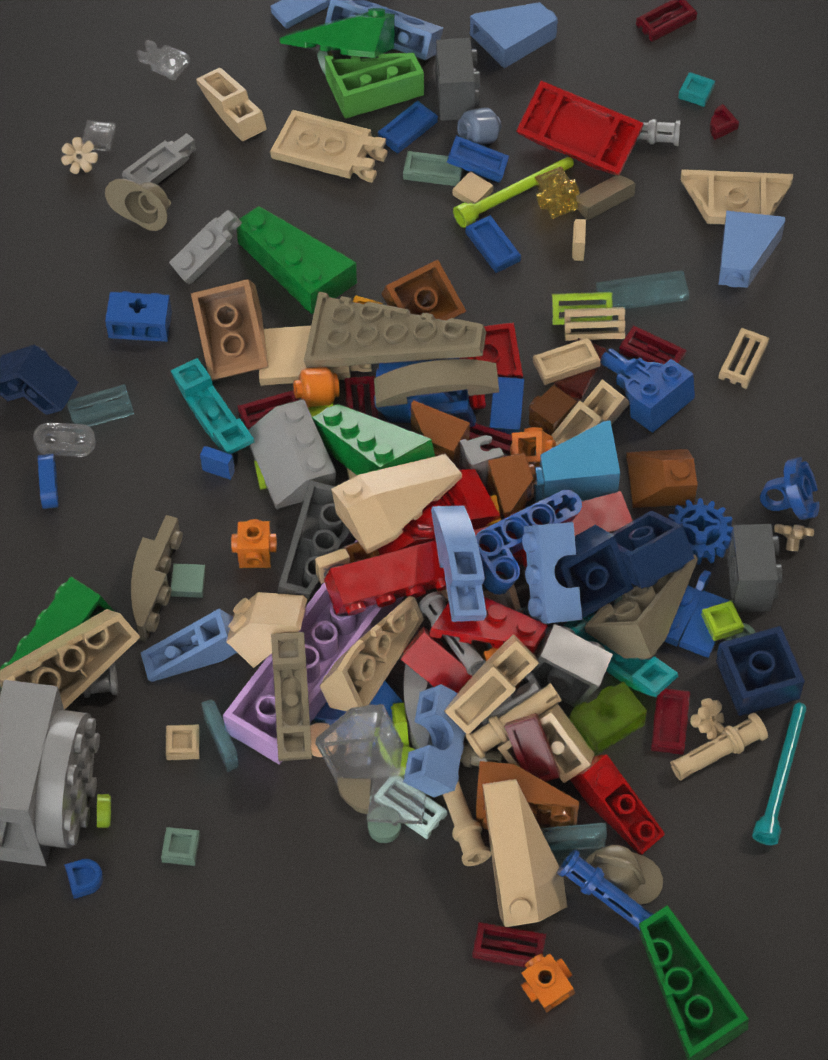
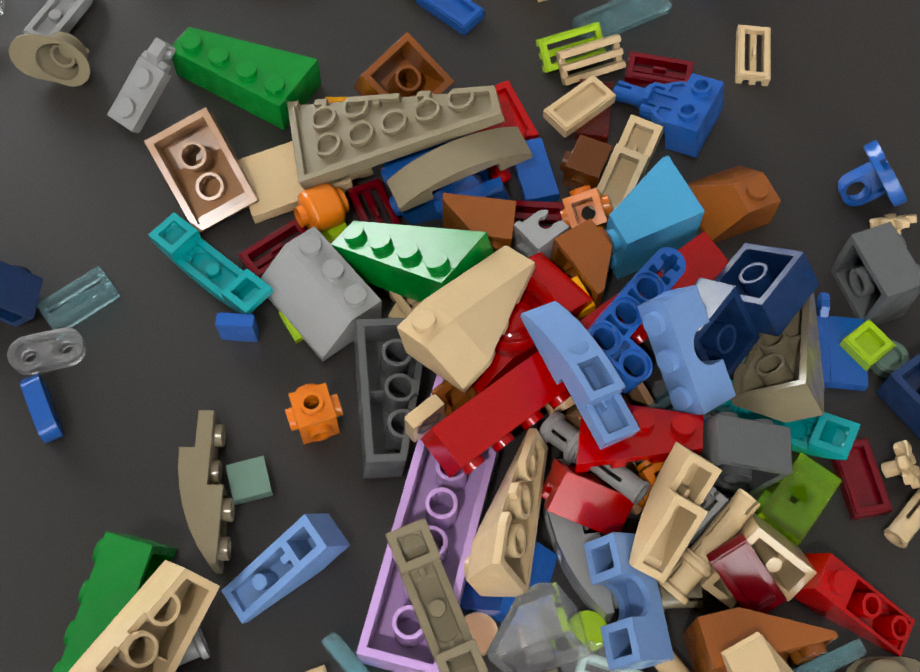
camera: 20 degrees left, 5 degrees up
(138, 316) = (90, 183): blue brick -> none
(259, 618) = (363, 511): tan slope -> none
(400, 722) = (560, 573): lime tile -> none
(705, 529) = (803, 237): blue gear -> none

